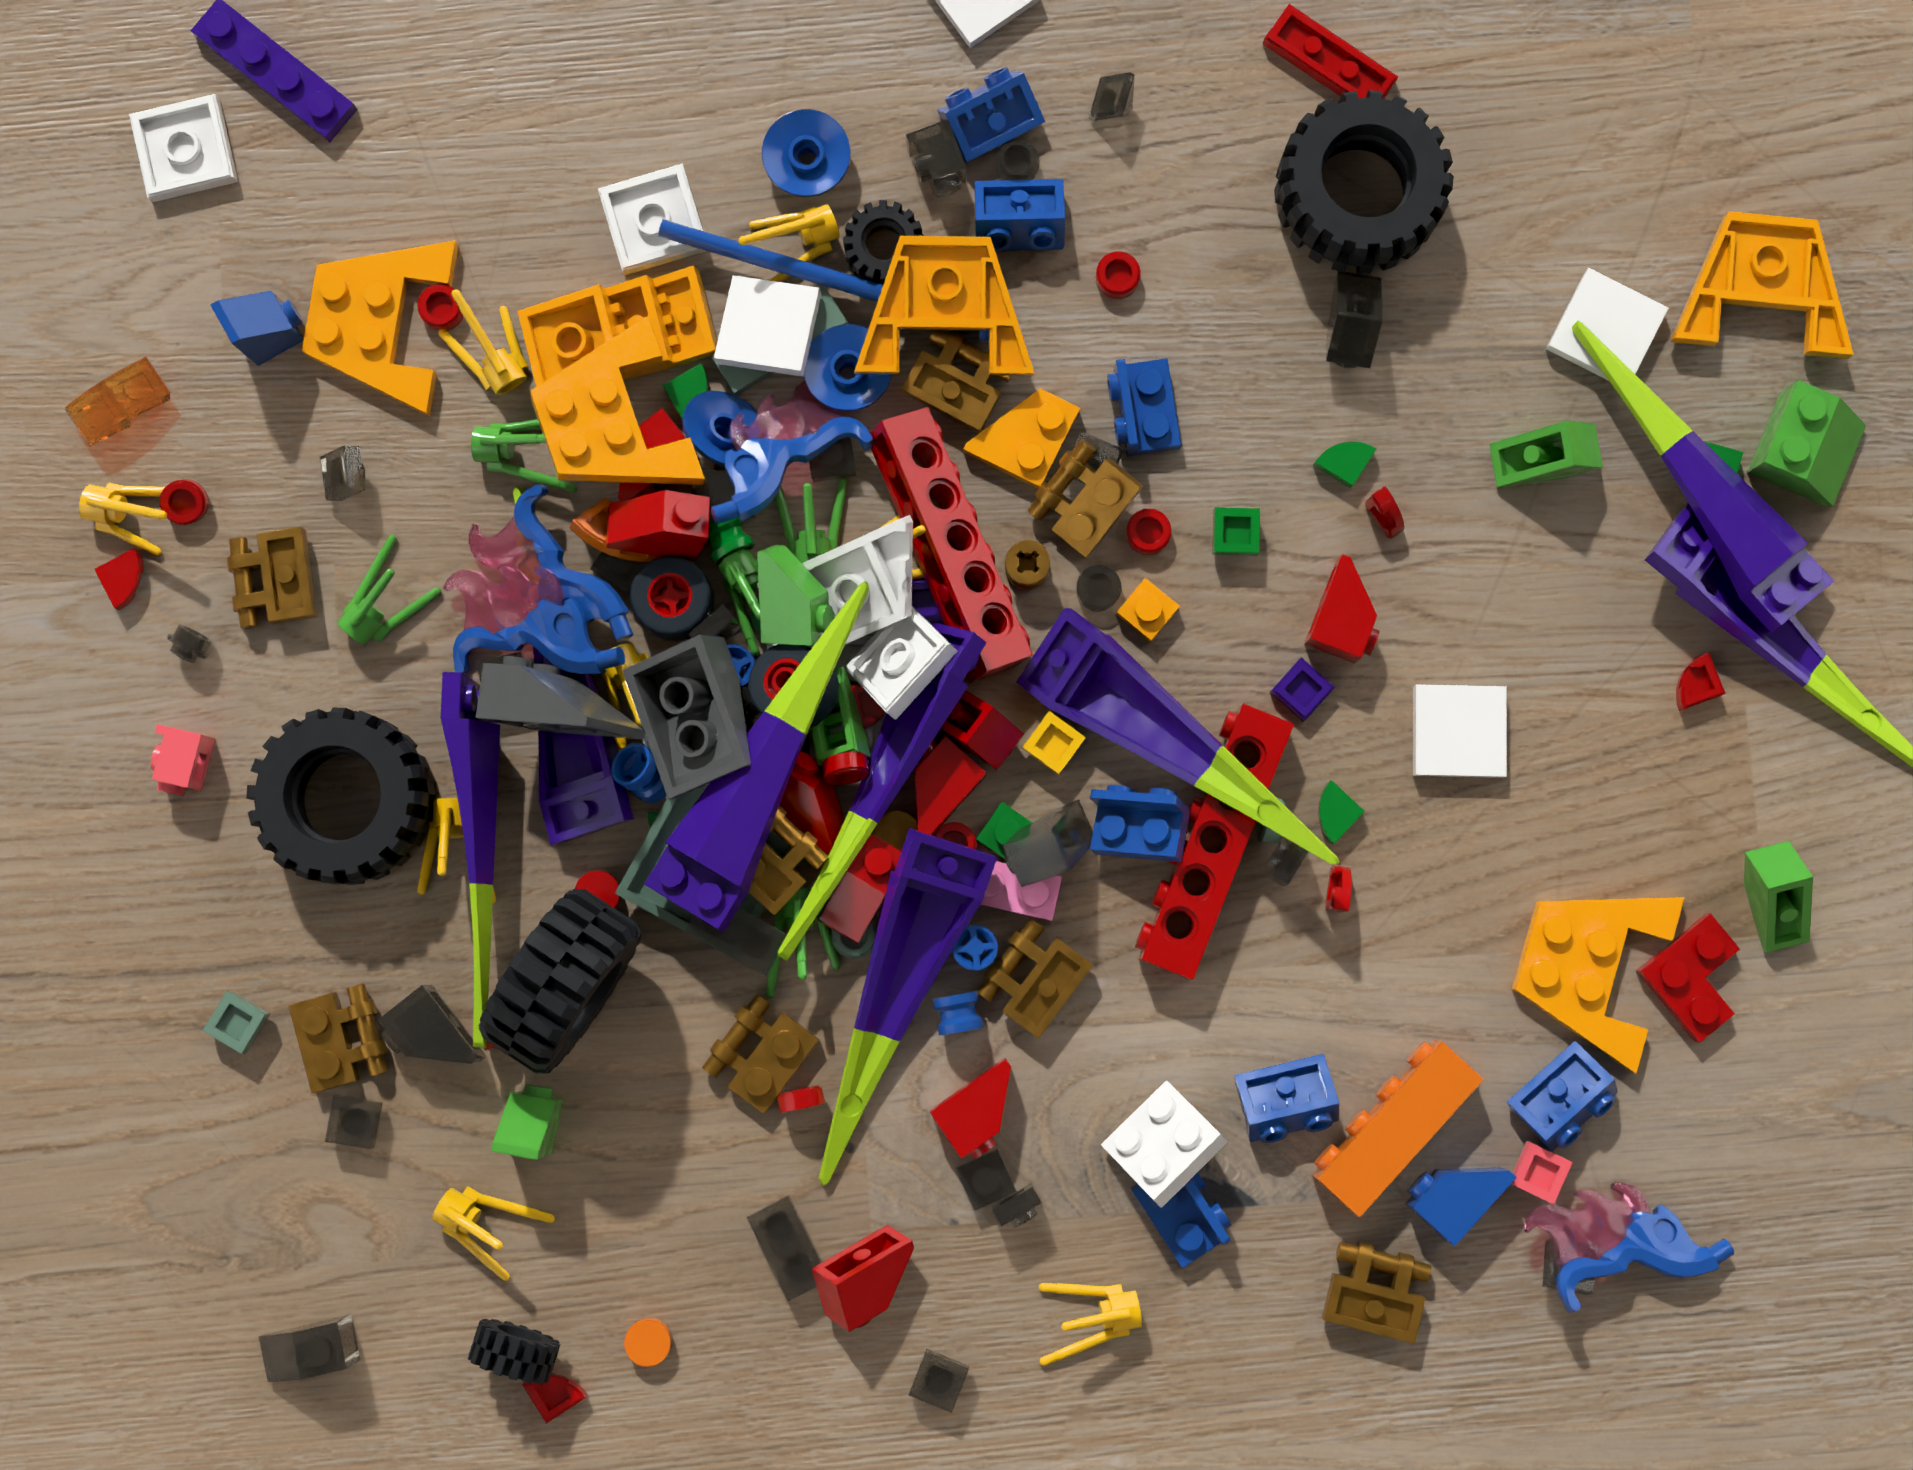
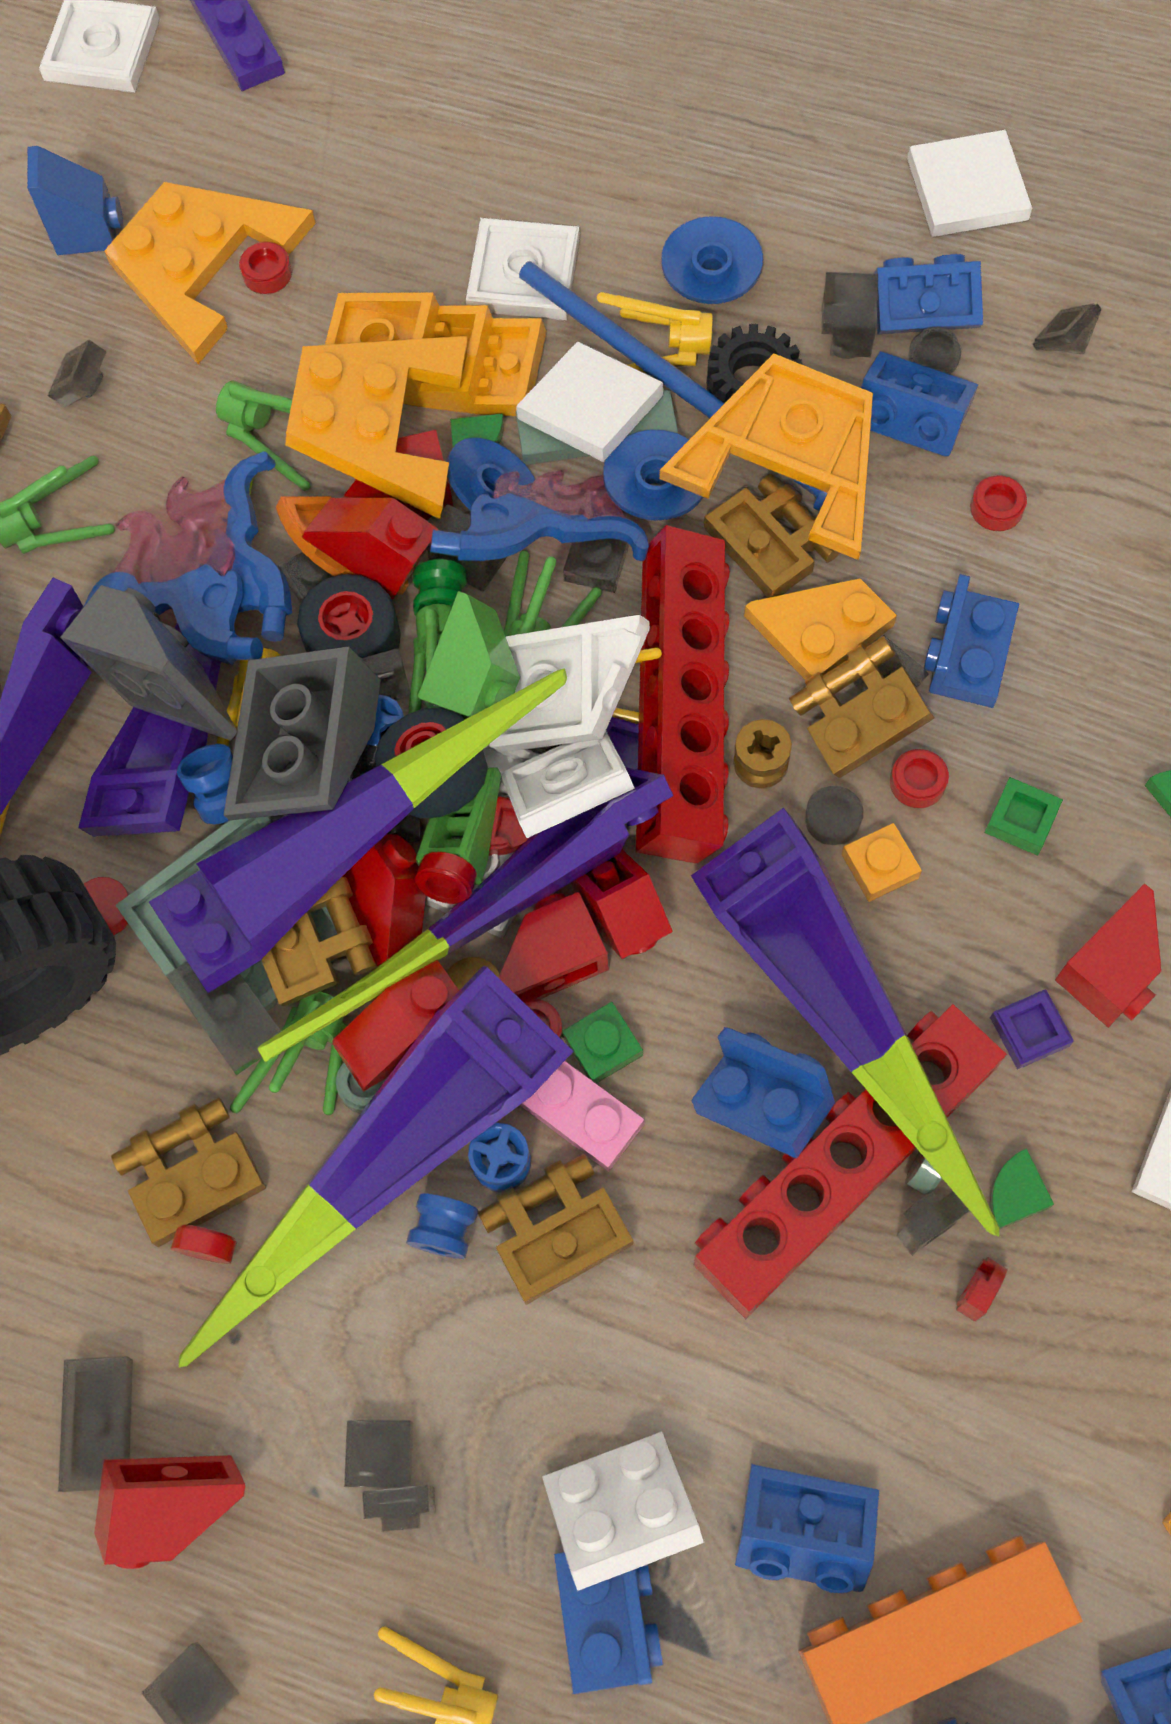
camera: 25 degrees right, 15 degrees down
(501, 370) = (291, 332): yellow plant -> none
(975, 1111) = (405, 1357): red slope -> none
(1049, 845) = (643, 1068): clear smoke slope -> none
(1053, 743) = (704, 961): yellow plate -> none

